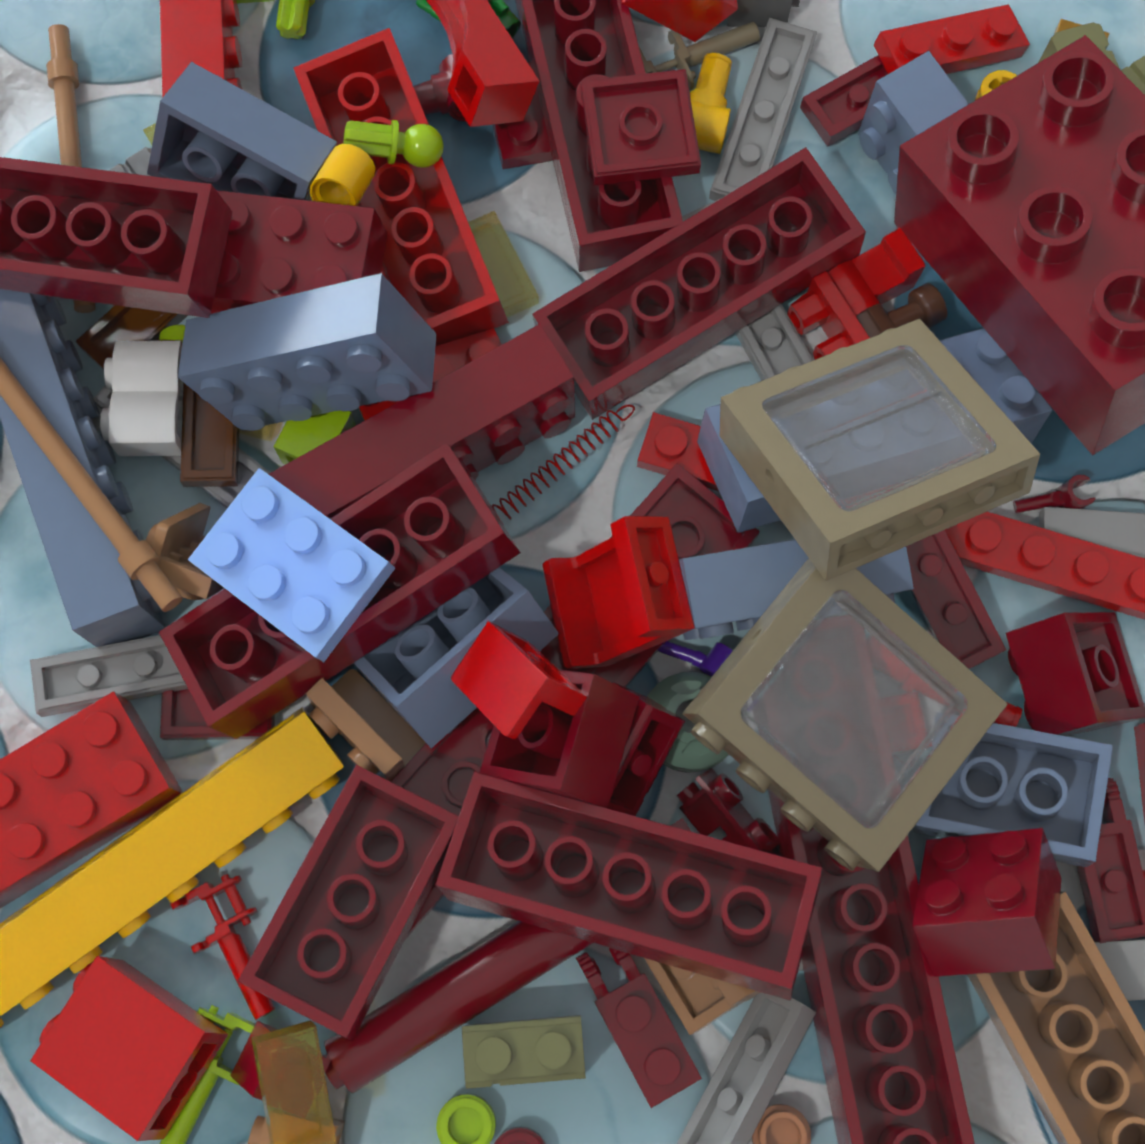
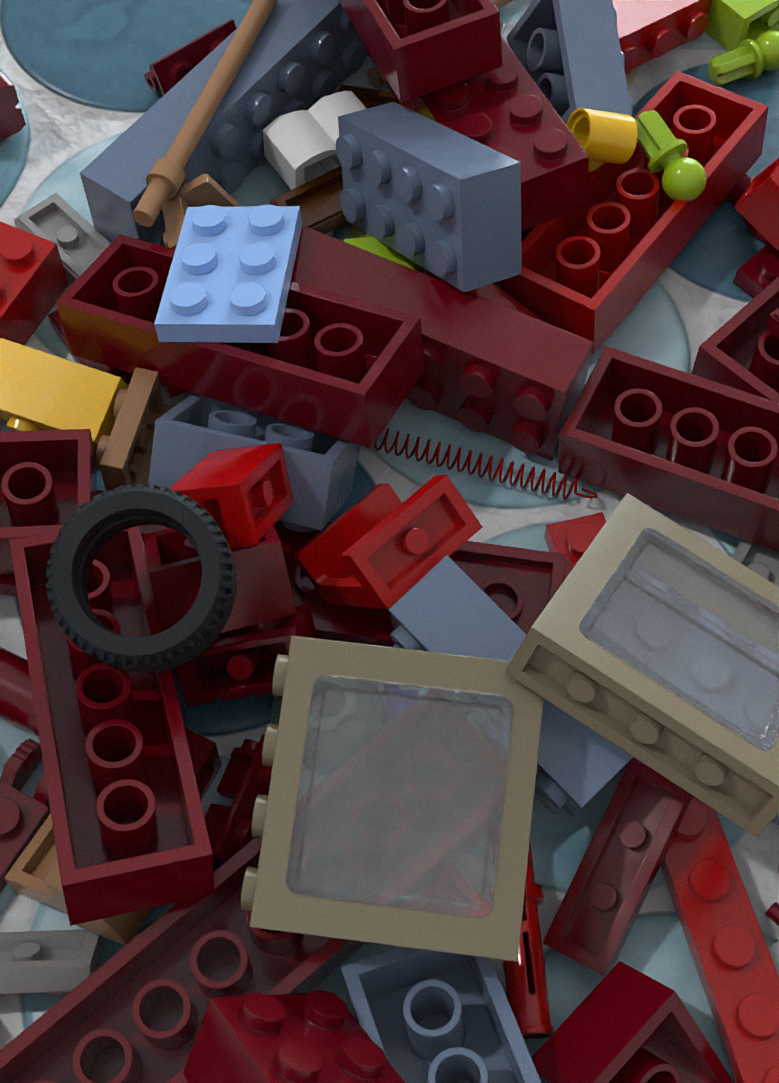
camera: 60 degrees right, 15 degrees down
(503, 265) = (647, 320): clear yellow tile -> none
(639, 810) = (91, 529): none -> black tyre

